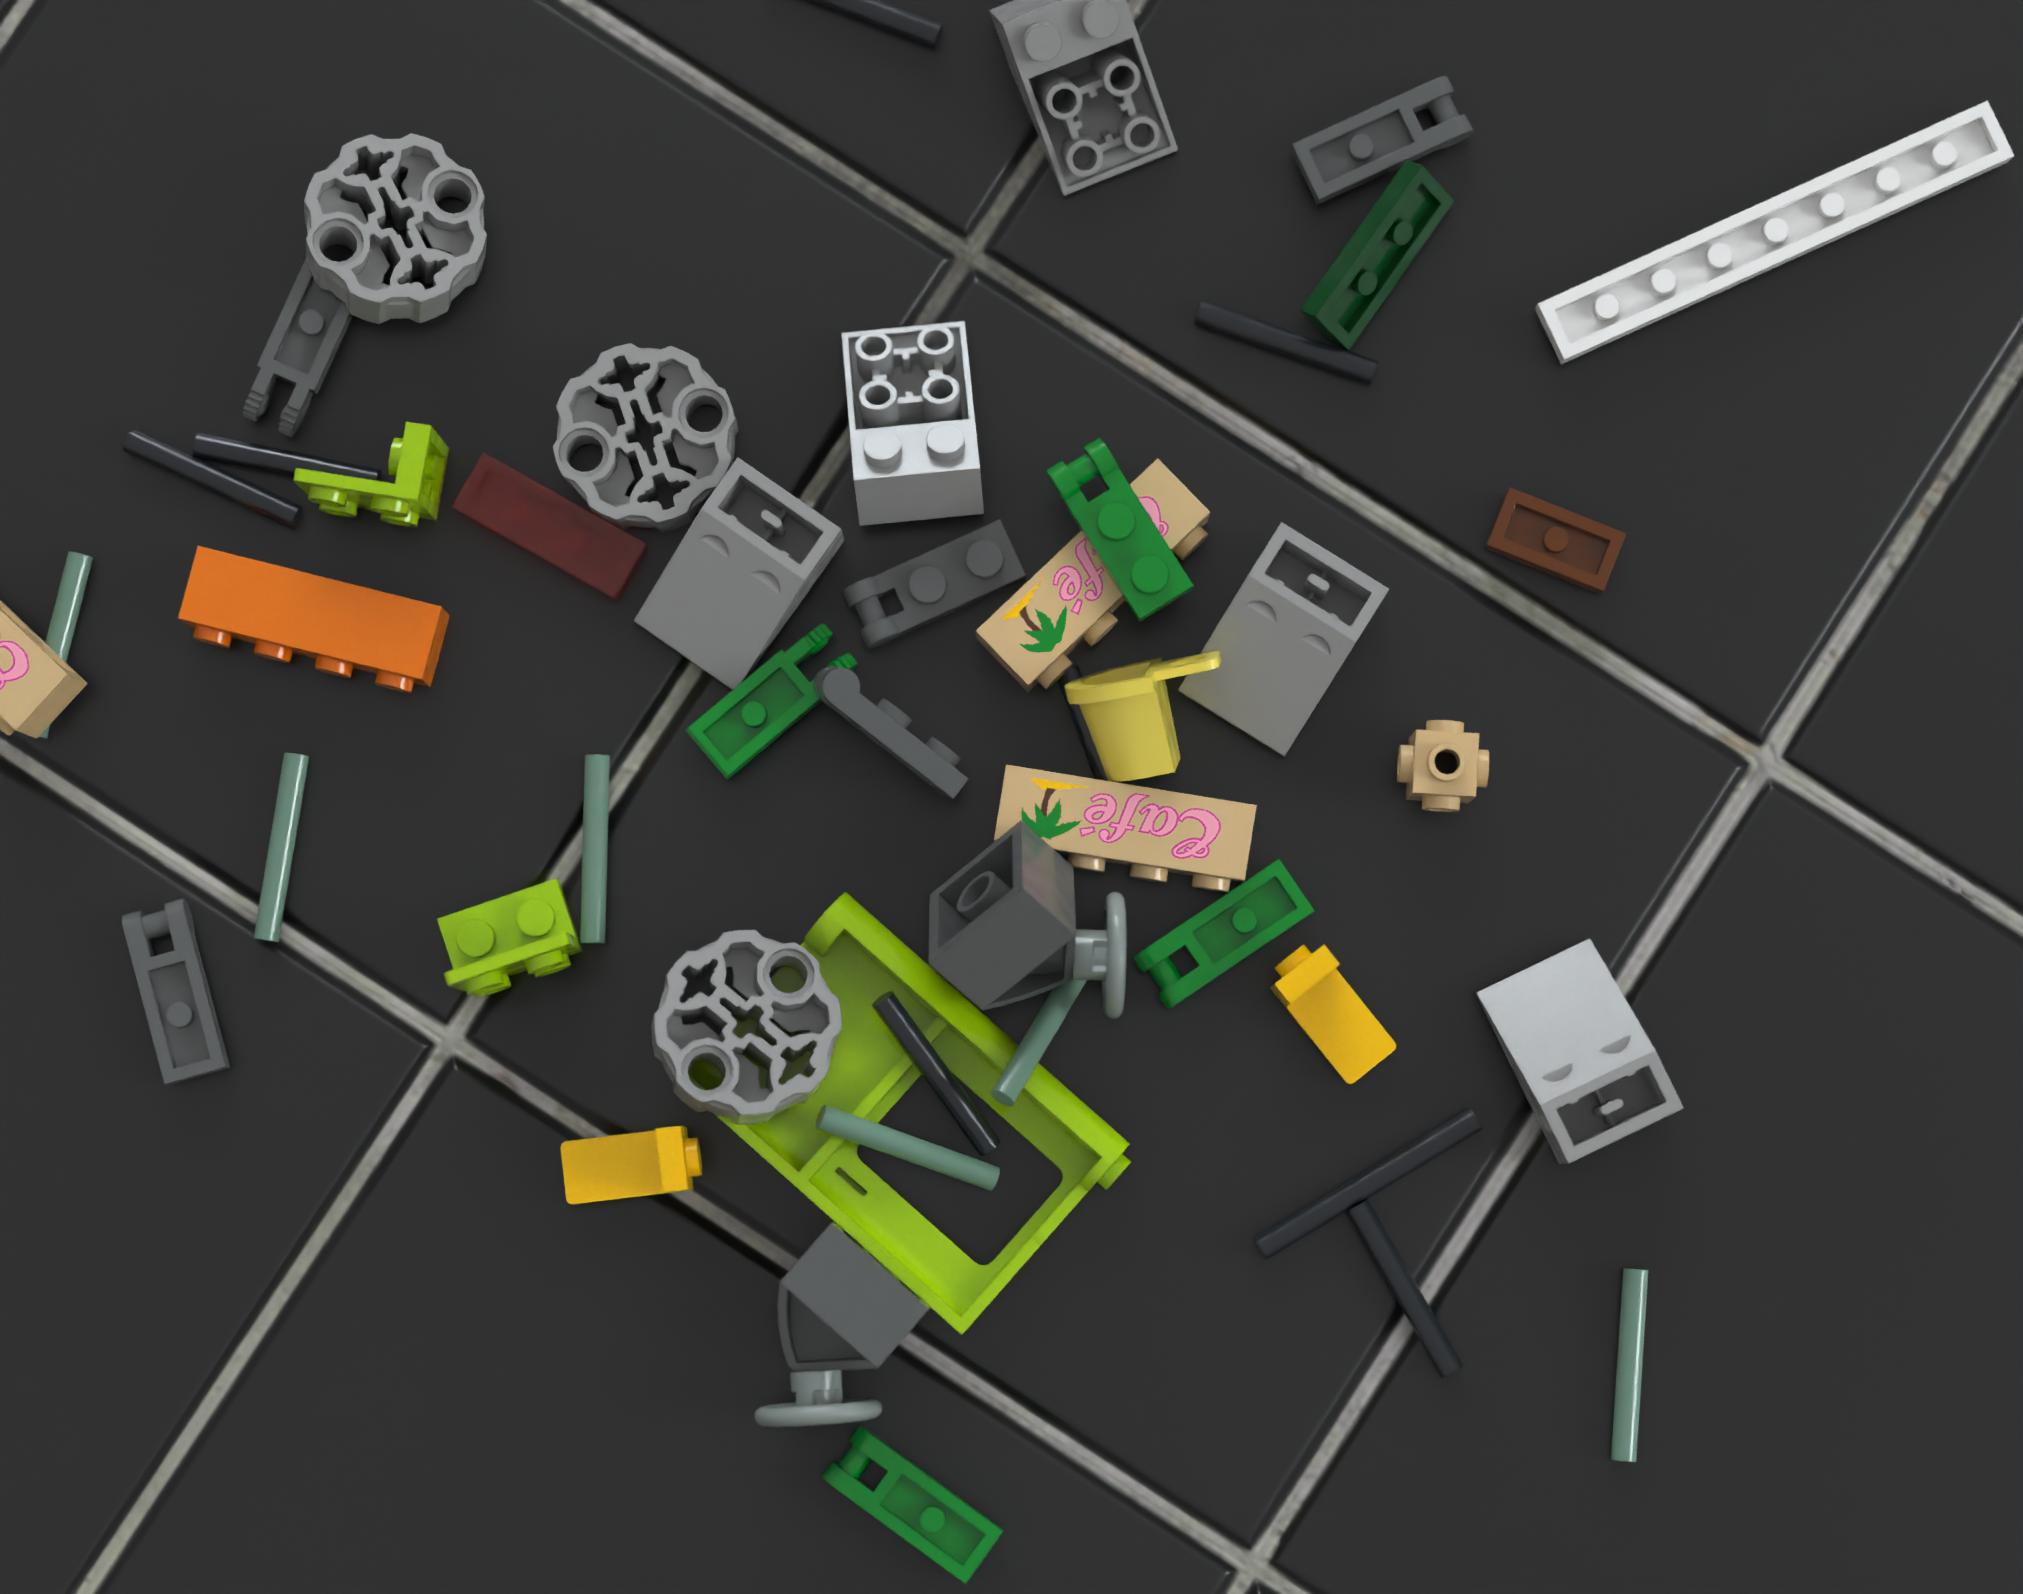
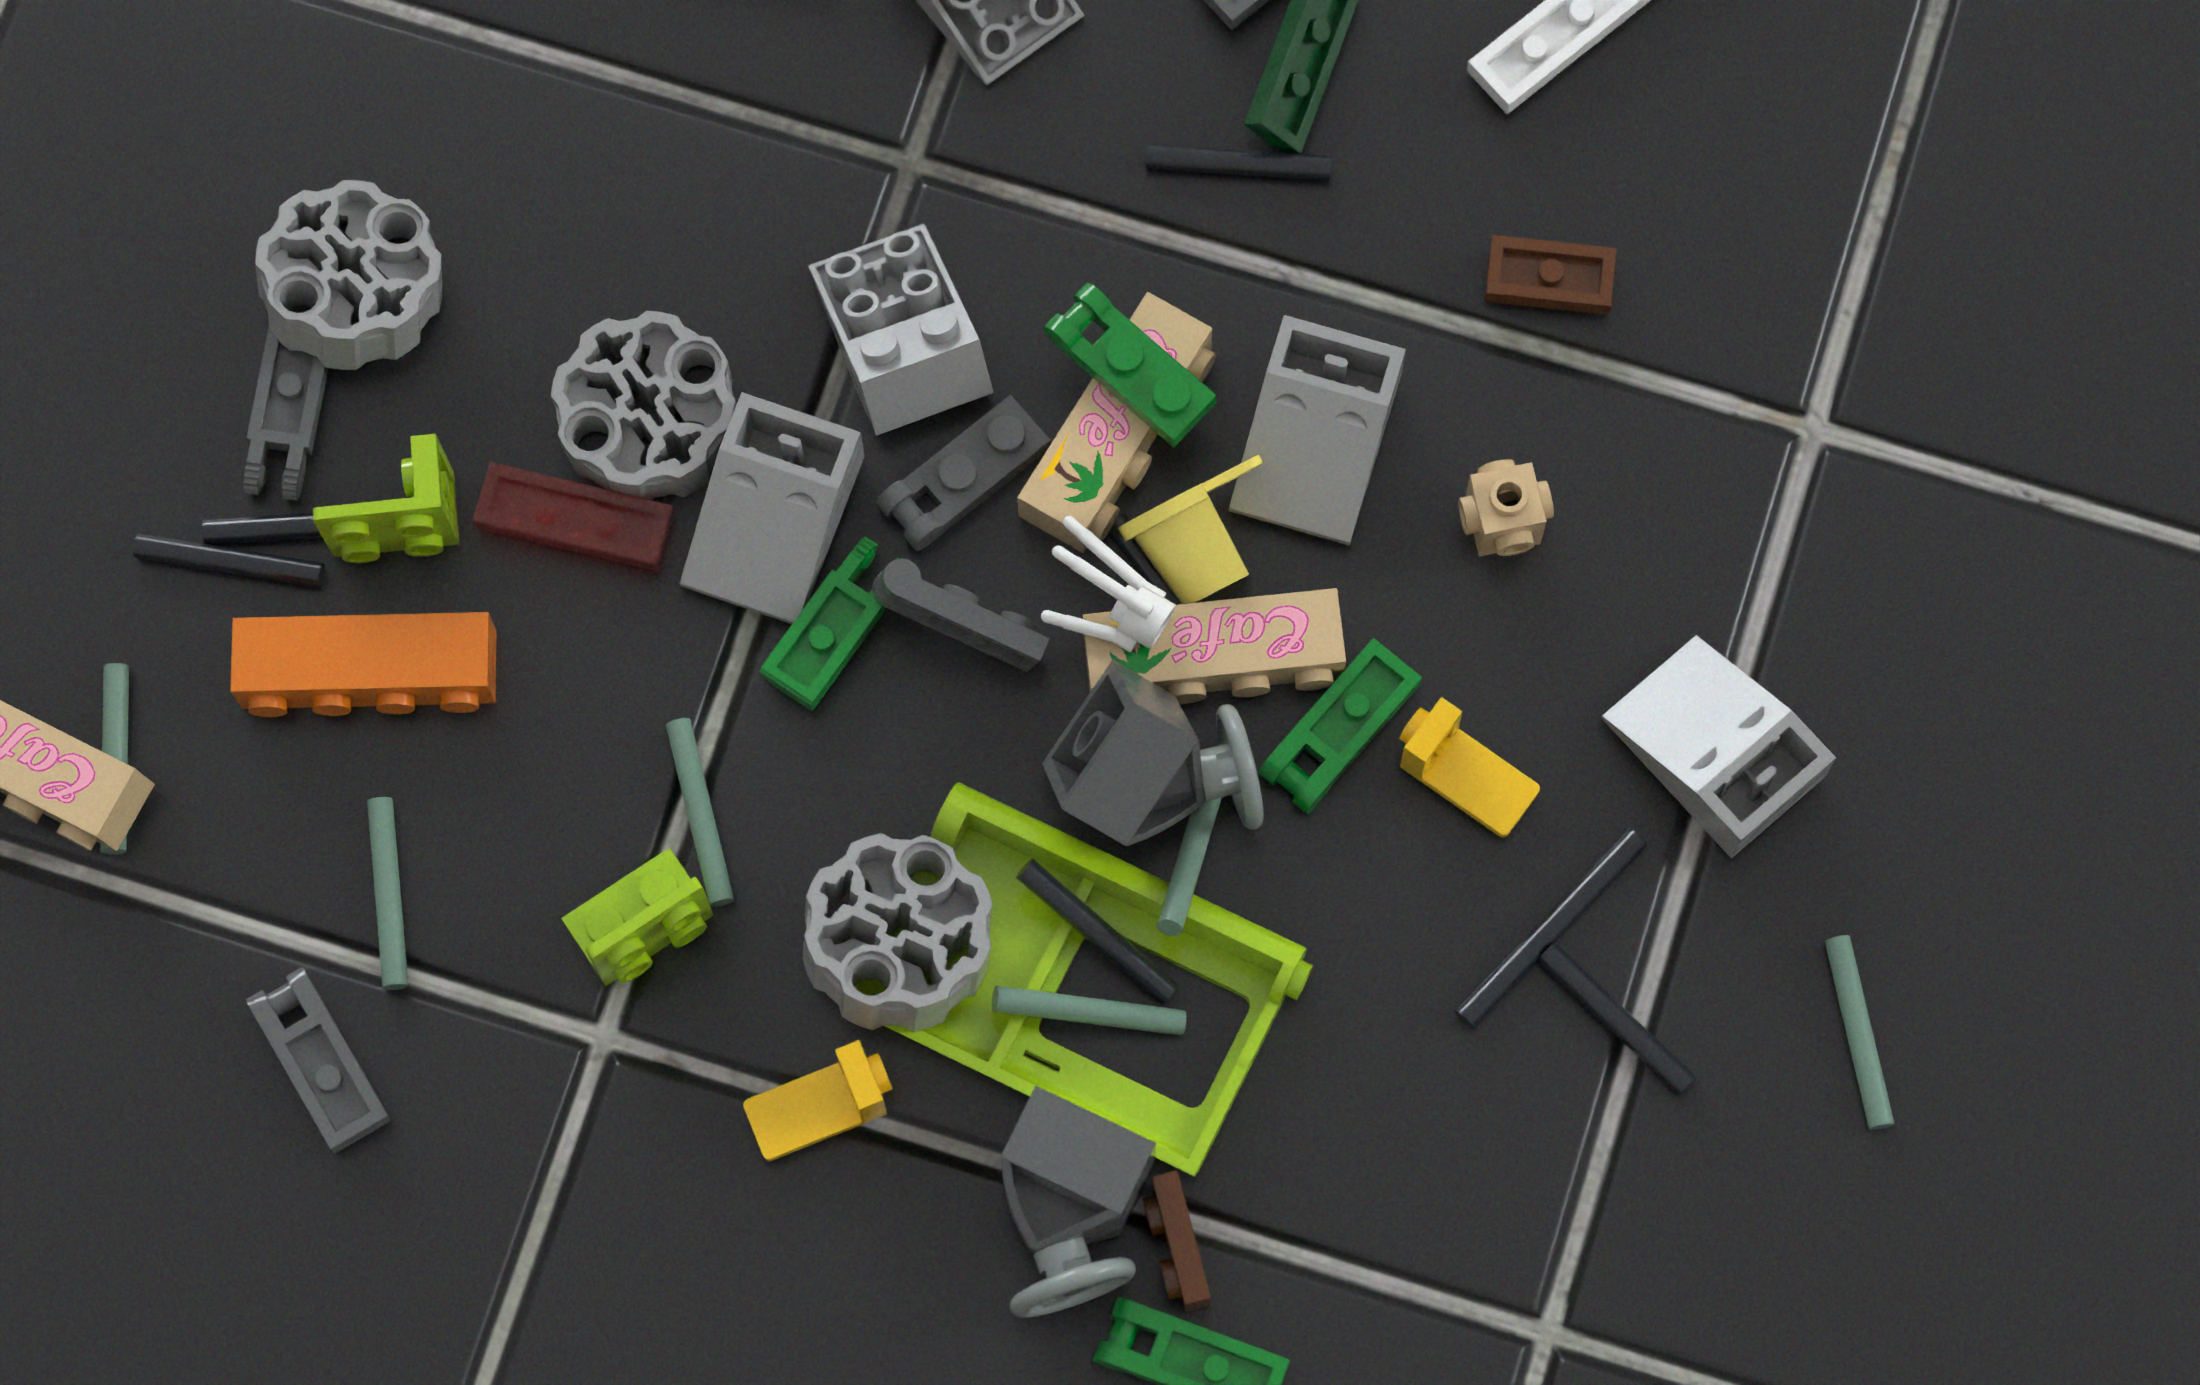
camera: 15 degrees left, 10 degrees down
(928, 1419) = (1169, 1215): none -> reddish brown plate
(1057, 782) = (1139, 607): none -> white plant

